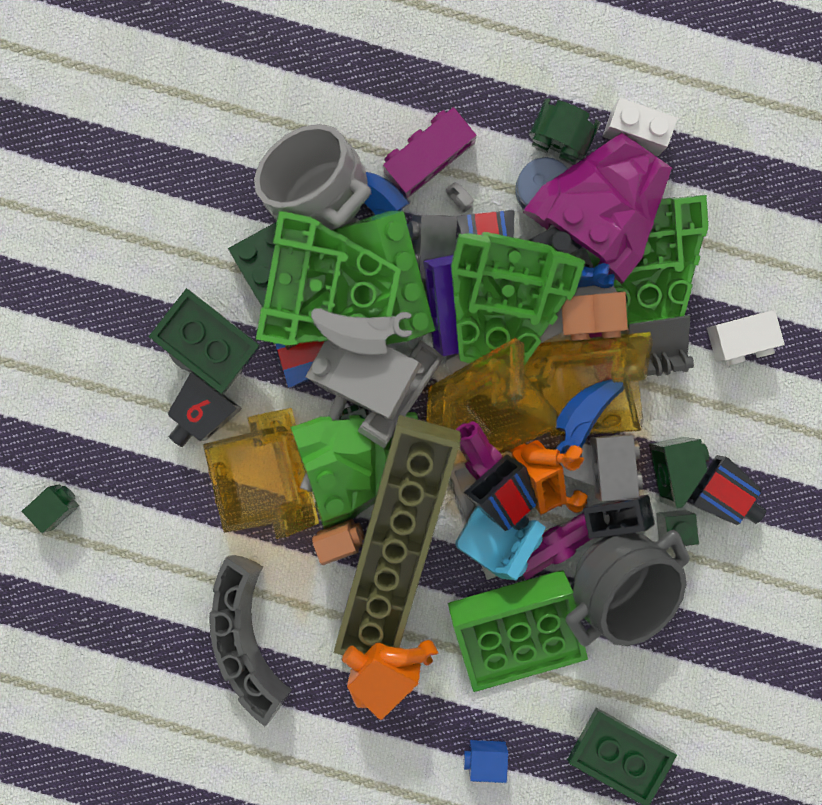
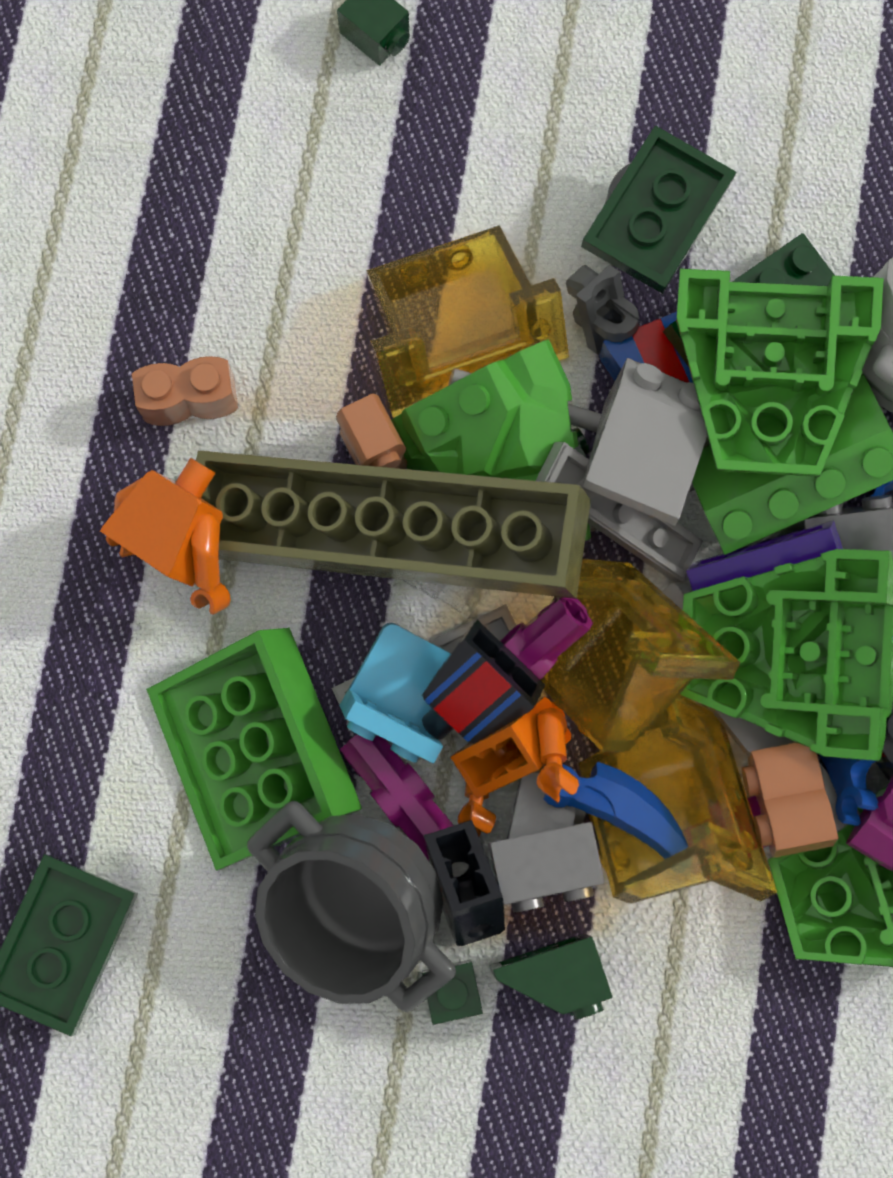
camera: 80 degrees right, 10 degrees down
(199, 411) = (547, 219): black torso -> none
(236, 644) = (200, 308): dark grey brick -> none
(265, 385) = (602, 321): none -> dark grey hips
(291, 659) = (174, 393): none -> nougat brick
(359, 334) = (710, 423): light grey piece -> none
(487, 761) = (37, 719): blue brick -> none
(669, 344) = (749, 934): dark grey hinge -> none
(727, 493) = (518, 1073): torso -> none
(746, 336) = (786, 1073): white brick -> none

